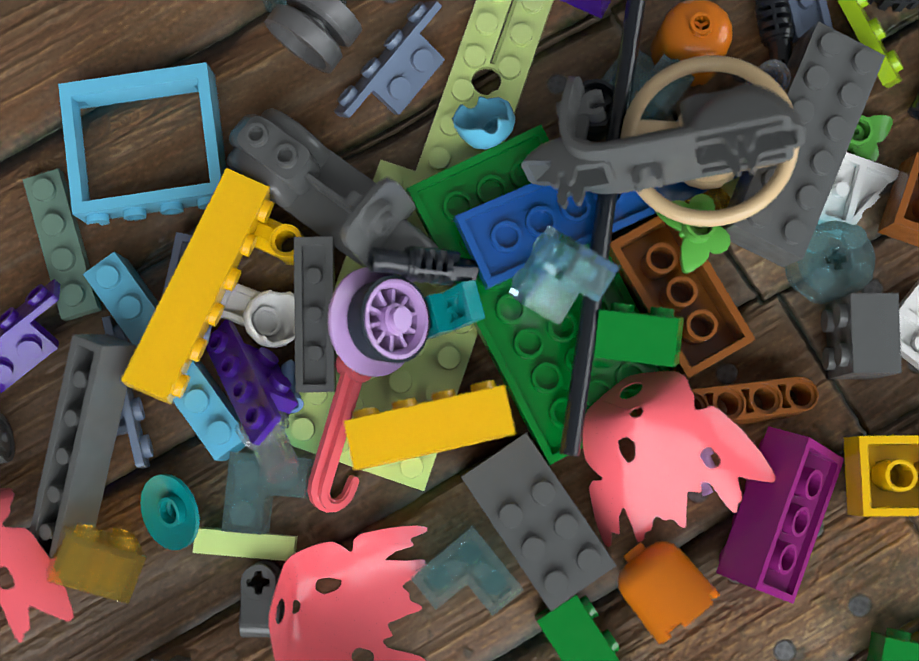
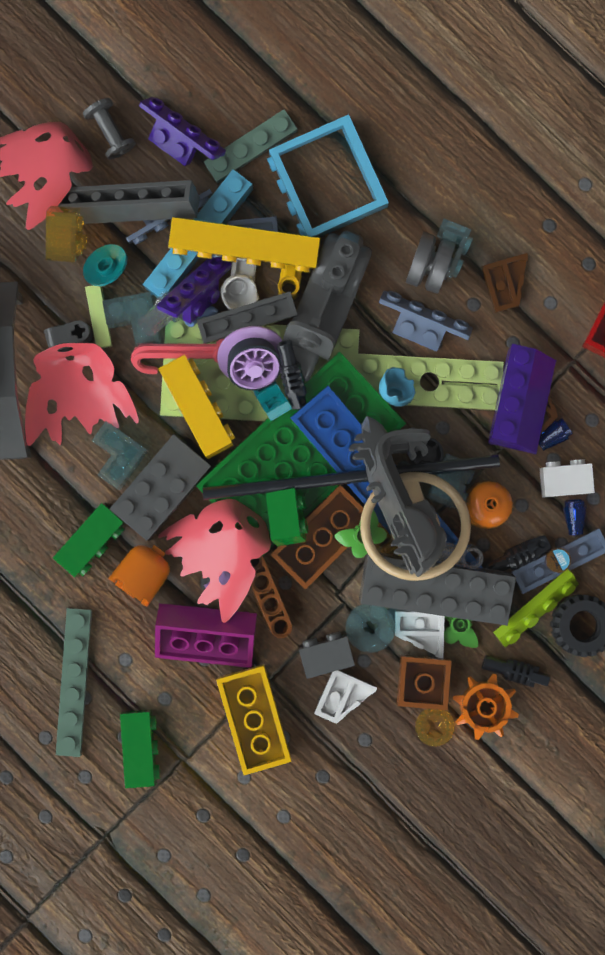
camera: 70 degrees right, 5 degrees up
(558, 273) = (309, 457): clear light blue brick -> none

